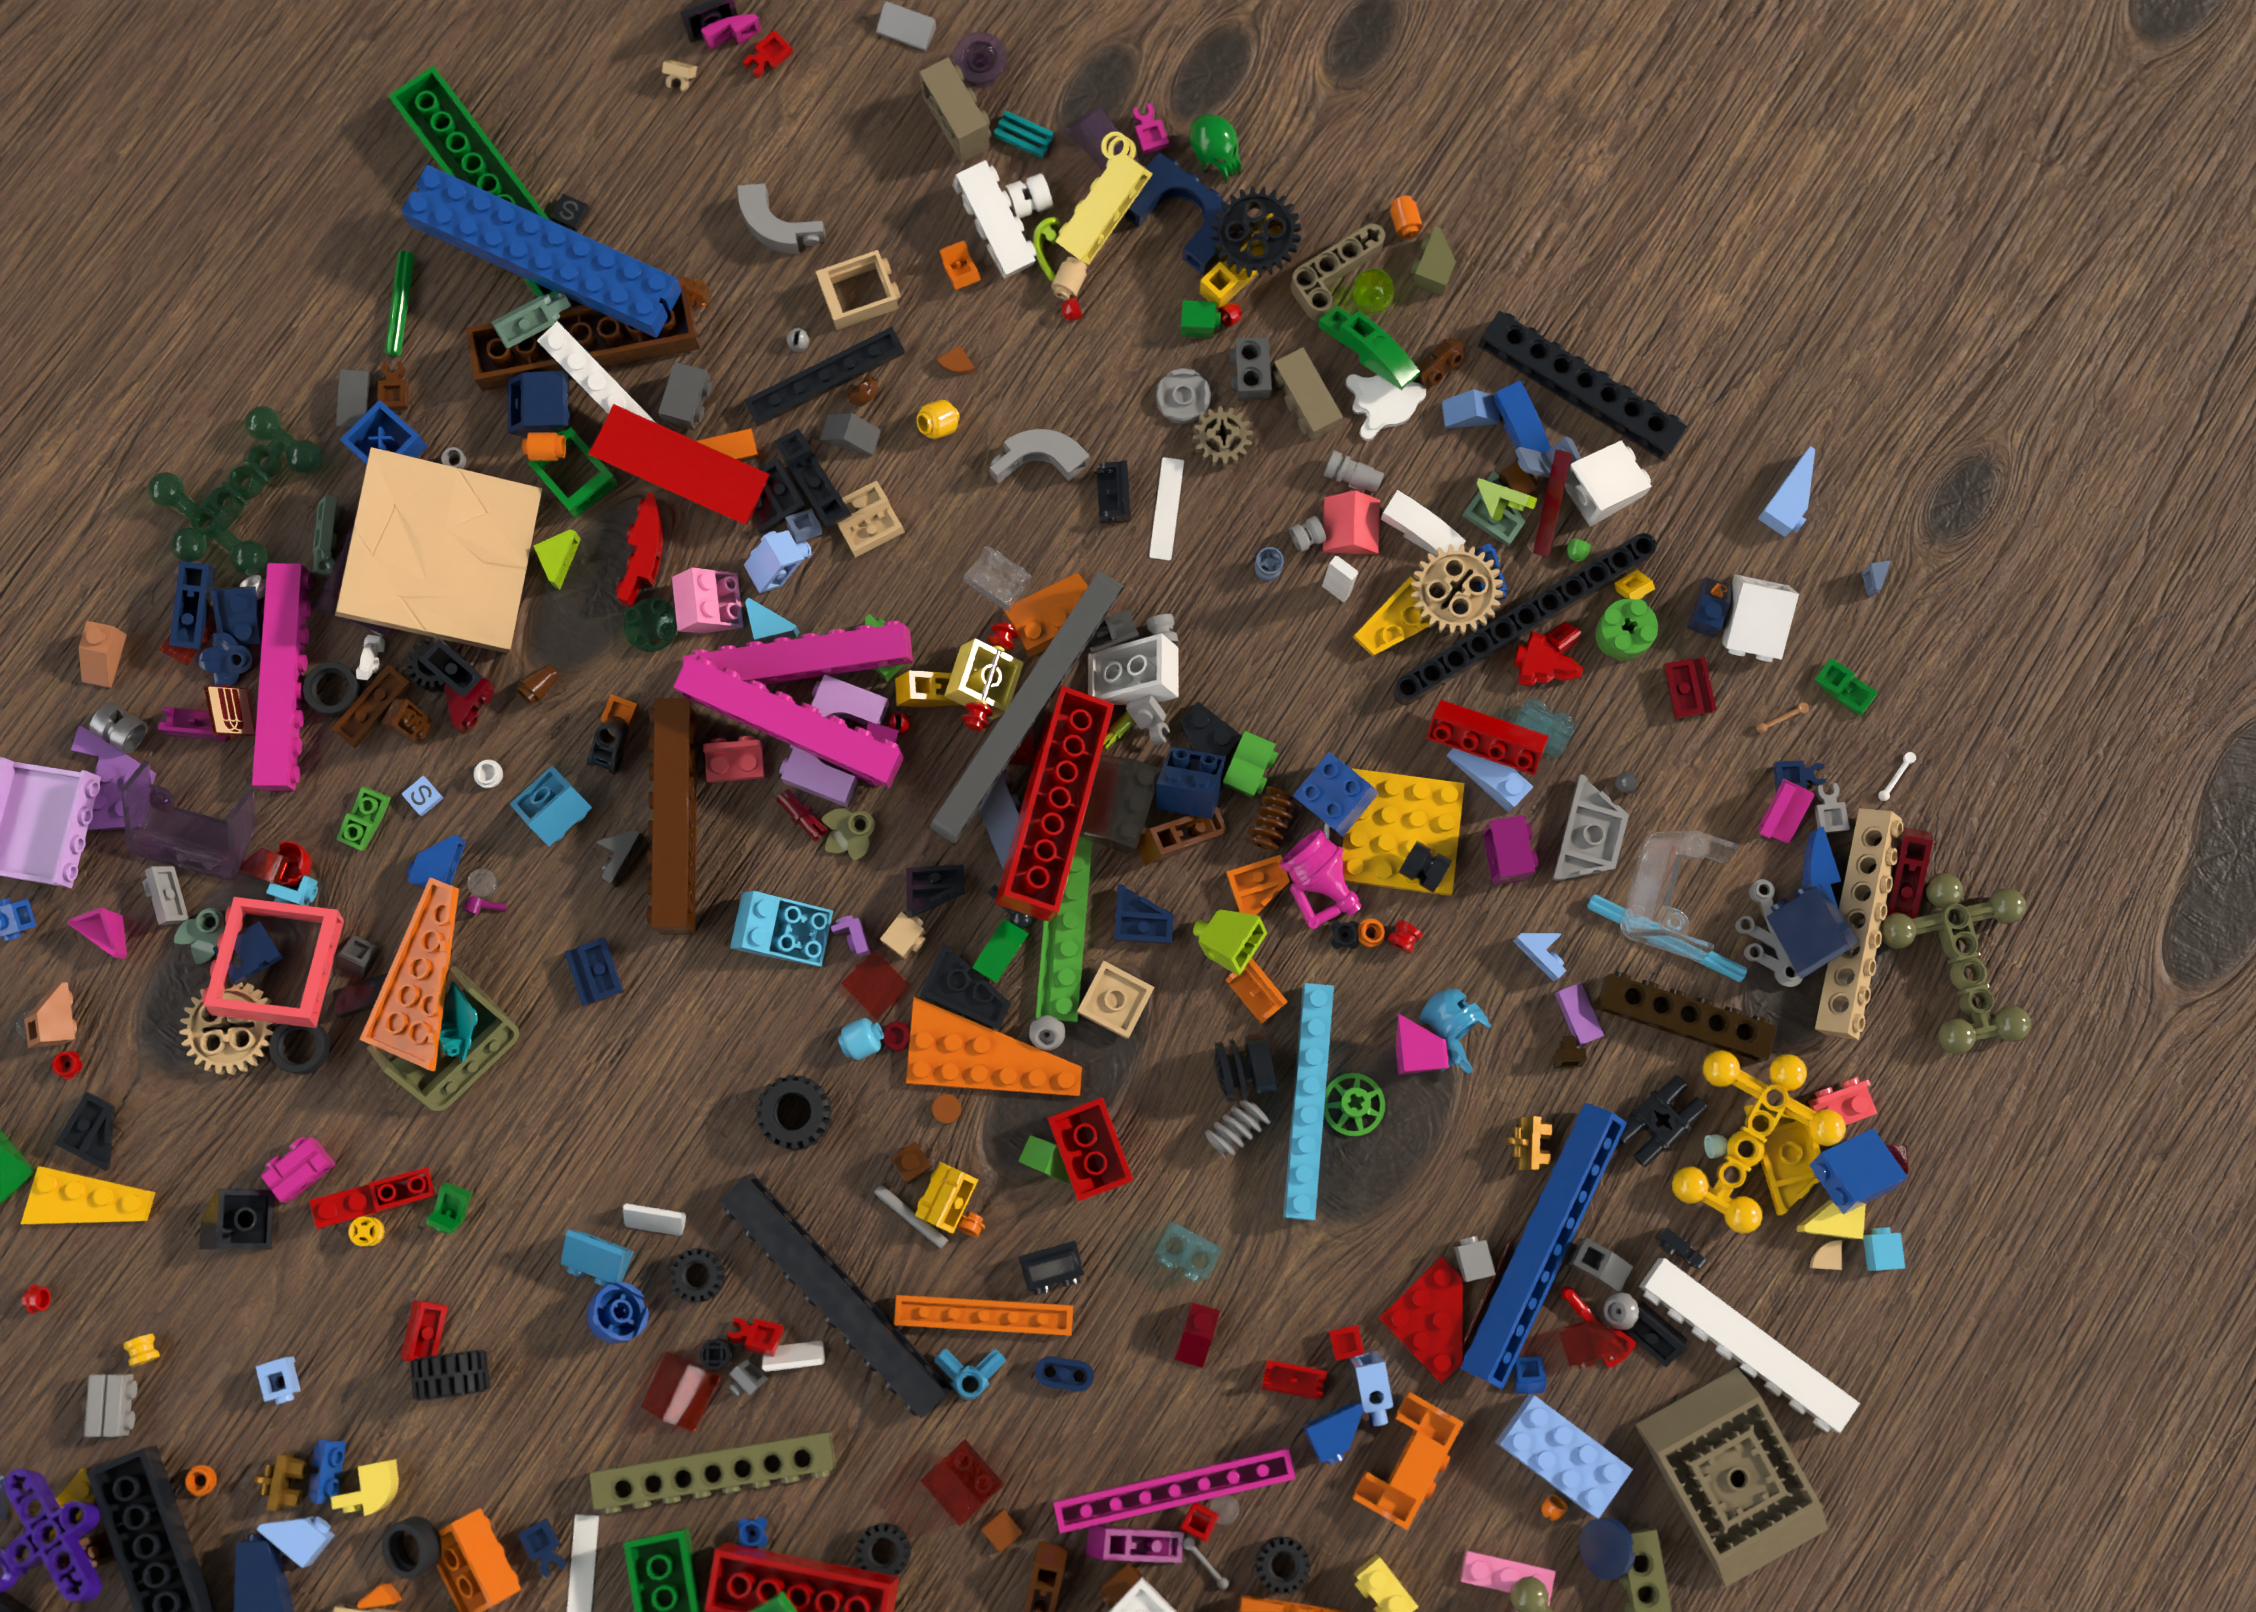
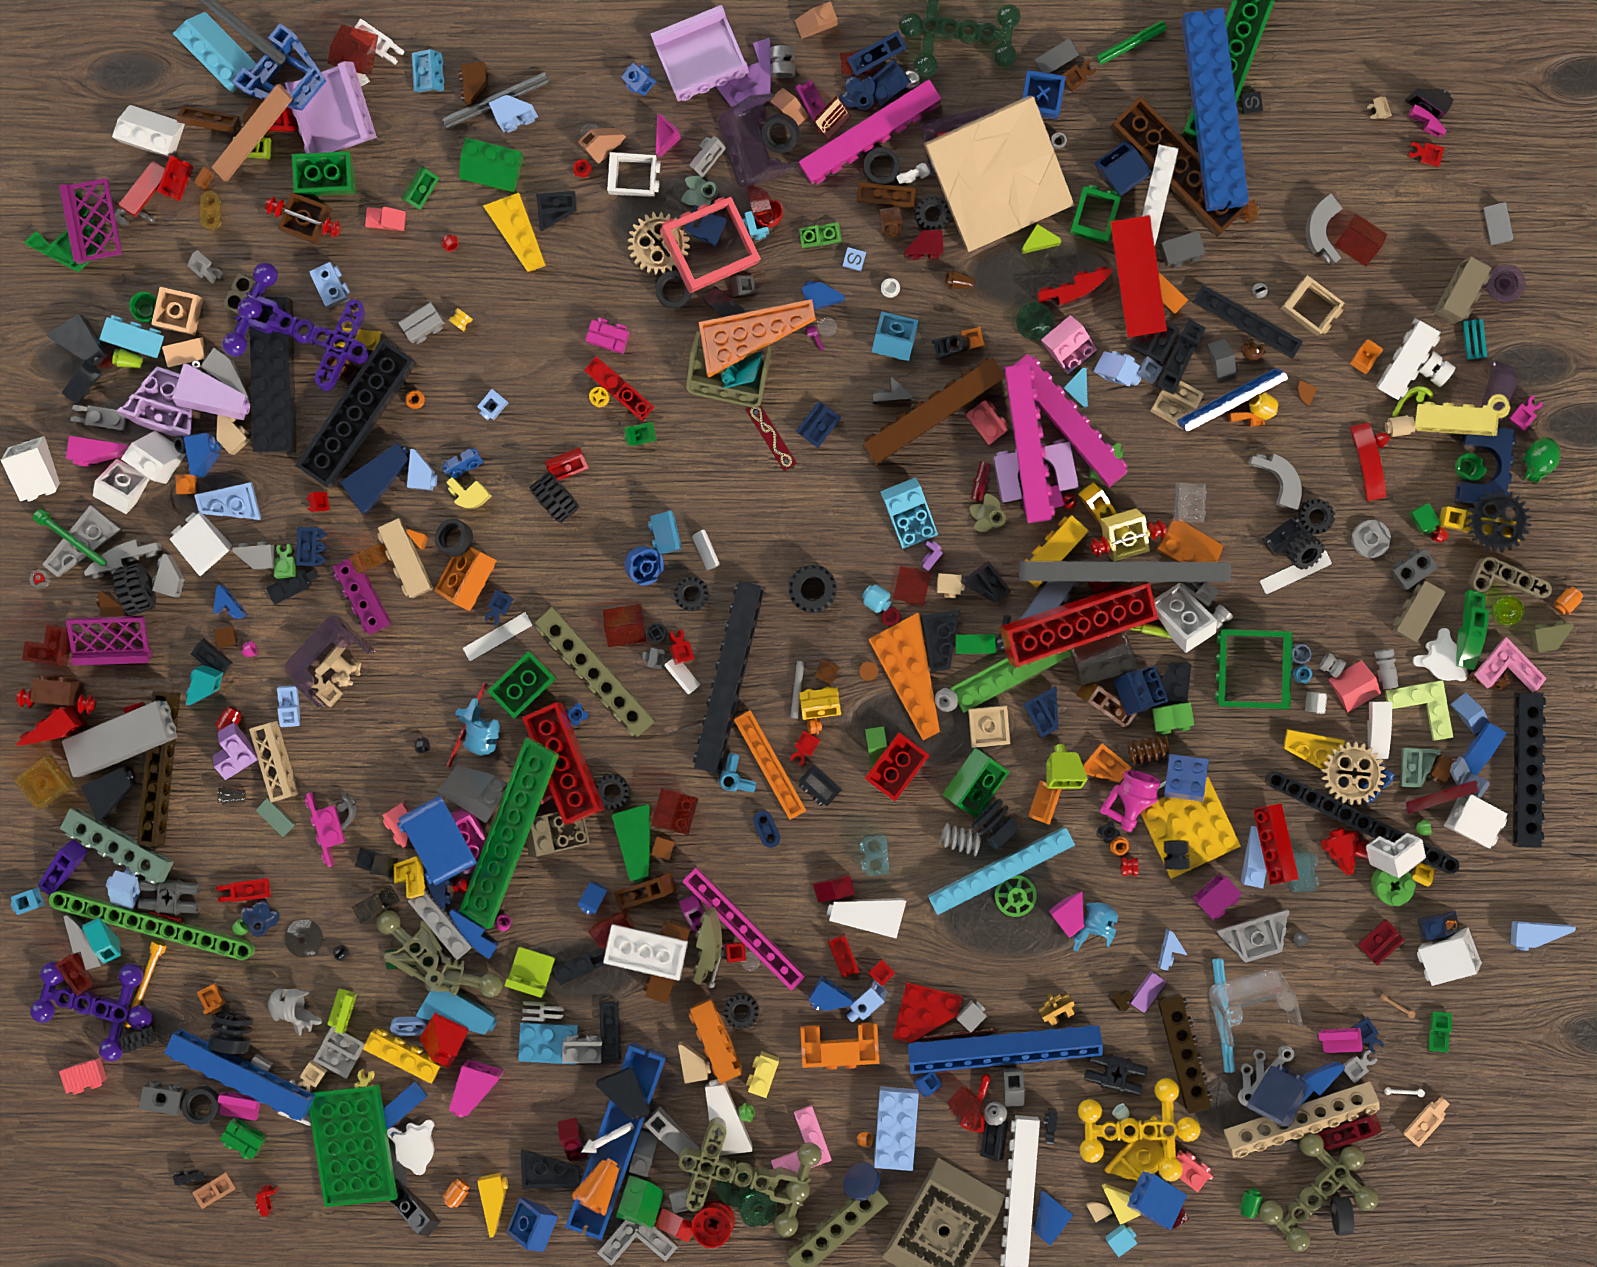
camera: 65 degrees right, 10 degrees up
(85, 1010) = (614, 161): none -> white window
(182, 756) = (788, 104): none -> nougat slope
(197, 806) = (770, 143): none -> black tyre
(238, 1220) = (560, 323): black slope -> none
(277, 1479) = (435, 448): pearl gold hips -> none
(324, 537) = (964, 99): sand green hinge -> none
(450, 666) = (936, 227): black slope -> none
(530, 318) = (1169, 131): sand green hinge -> none
(544, 446) = (1099, 191): orange brick -> none
(570, 1042) = (771, 437): none -> sticker
(818, 189) = (1361, 240): none -> clear red slope
(904, 451) = (1231, 399): none -> tile
(941, 765) = (1058, 543): none -> yellow brick
(943, 443) = (1252, 419): none -> orange slope
(966, 1562) = (634, 836): none -> green slope
(989, 1251) = (806, 744): none -> red plate
(1089, 339) = (1369, 461): none -> red slope
(1118, 426) = (1328, 516): none -> black tyre
(1135, 475) = (1305, 551): none -> black tyre
(1148, 713) = (1165, 642): light grey plate -> none
(1164, 1547) = (710, 944): none -> olive slope
(1172, 230) = (1470, 467): none -> green hair
(1176, 1062) = (975, 783): none -> green slope
(1232, 434) = (1365, 584): dark tan gear -> none
(1236, 674) = (1220, 695): none -> green window
(1263, 1306) = (872, 915): none -> white slope
(1296, 569) = (1307, 674): none -> dark azure plate
(1425, 440) = (1436, 703): none -> yellowish green plate
(1428, 324) = (1509, 656): none -> bright pink plate
(1497, 497) = (1426, 762): lime slope -> none
(1593, 598) = (1398, 856): none -> white brick
(1802, 1325) = (1050, 1218): none -> blue slope
(1874, 577) = (1518, 1010): sand blue slope -> none
(1930, 1053) = (1251, 1203): none -> green brick
(1951, 772) = (1426, 1121): none -> light nougat hinge
(2013, 948) = (1342, 1216): none -> black tyre

